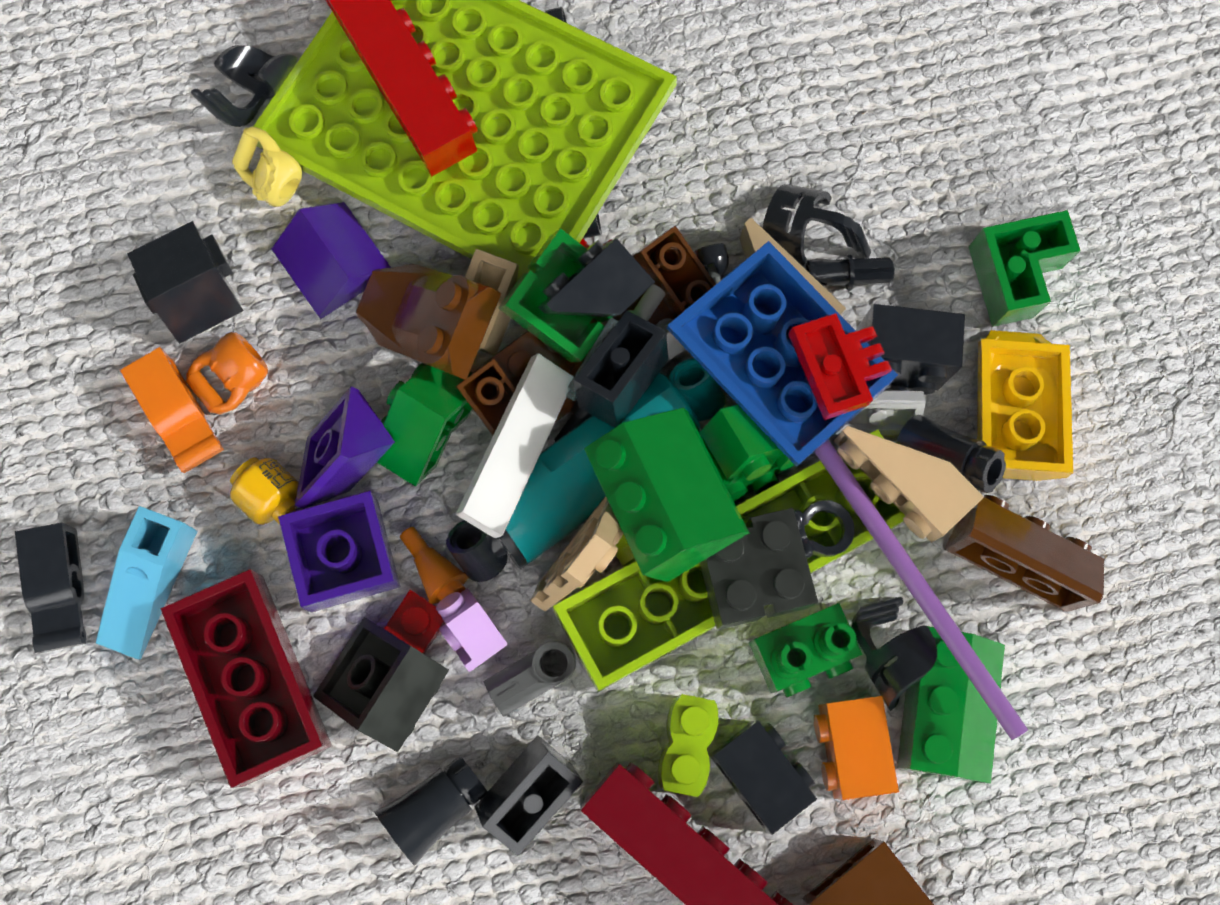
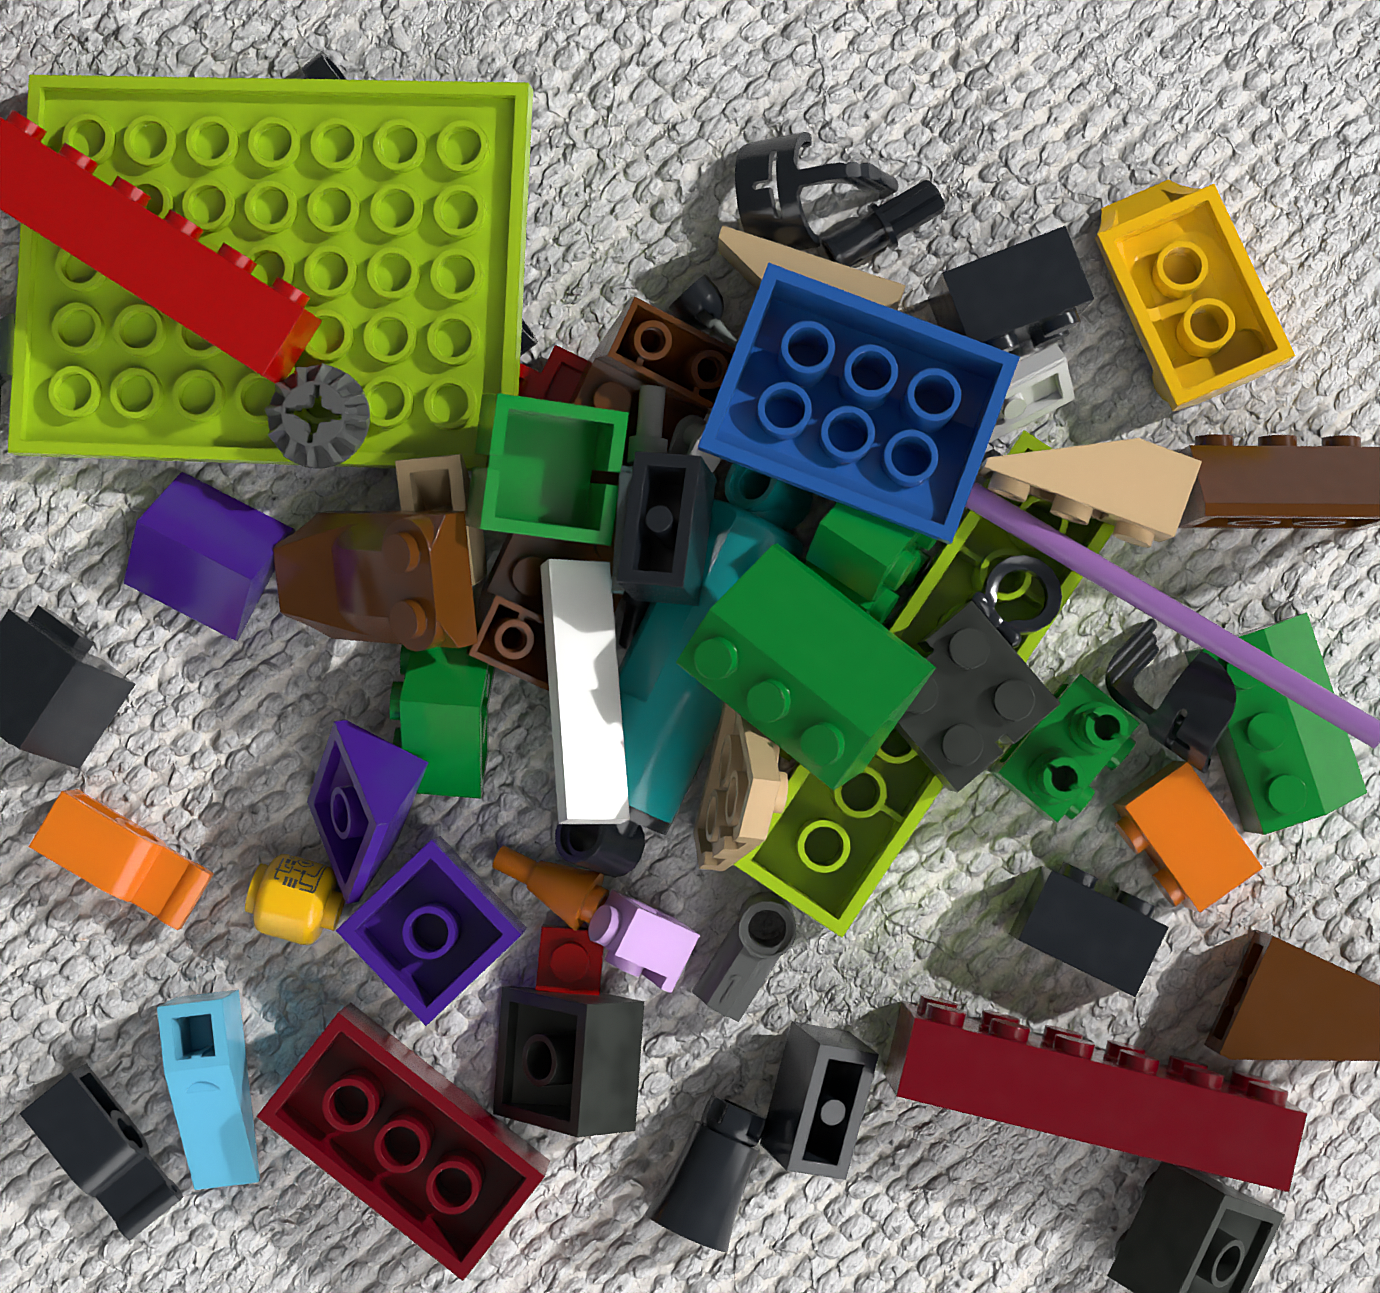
camera: 20 degrees left, 10 degrees up
(235, 365) = (169, 760): orange piece -> none
(276, 172) = (74, 482): light yellow piece -> none
(445, 220) = (334, 439): none -> dark grey gear
(601, 286) = (589, 444): black slope -> none
(685, 759) = (982, 958): lime brick -> none
(837, 364) = (938, 388): red hinge -> none
(971, 457) = (1115, 410): black plant -> none
(1013, 260) = (1087, 109): green brick -> none

